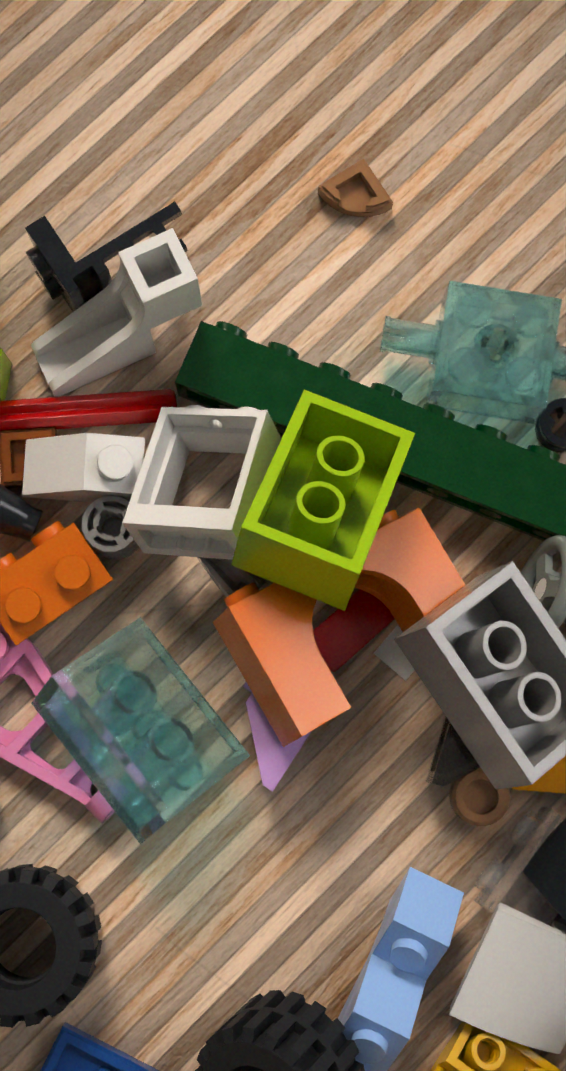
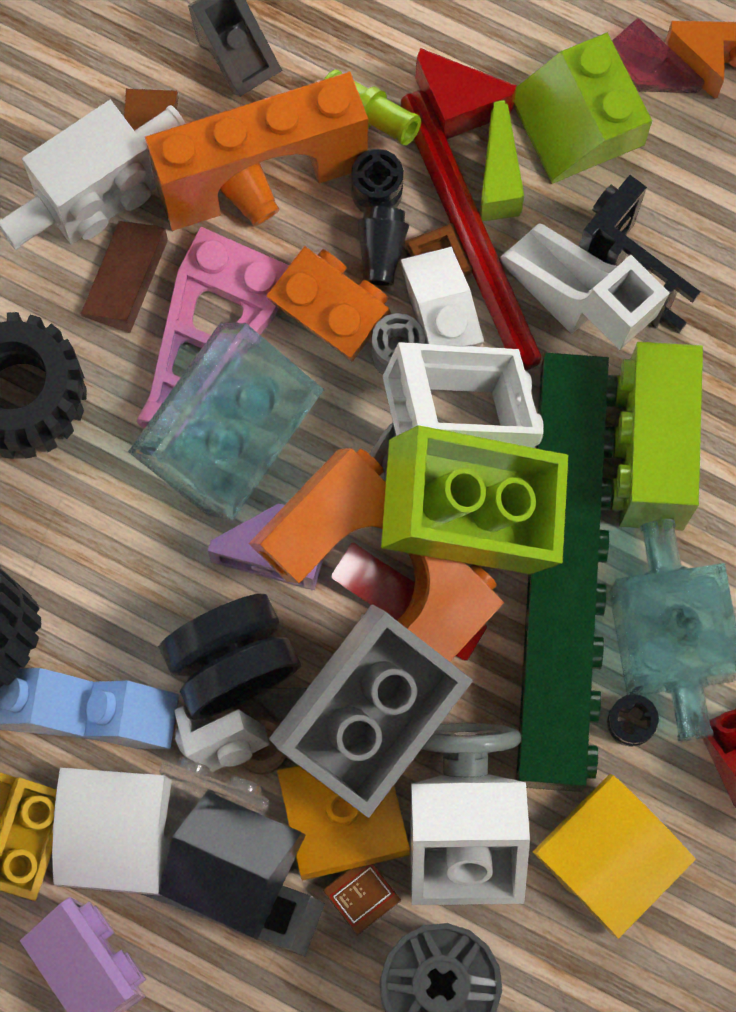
camera: 75 degrees right, 5 degrees down
(298, 296) = (658, 434): none -> lime brick
(402, 802) = (229, 655): none -> black wheel
(477, 833) = (221, 742): none -> white bracket

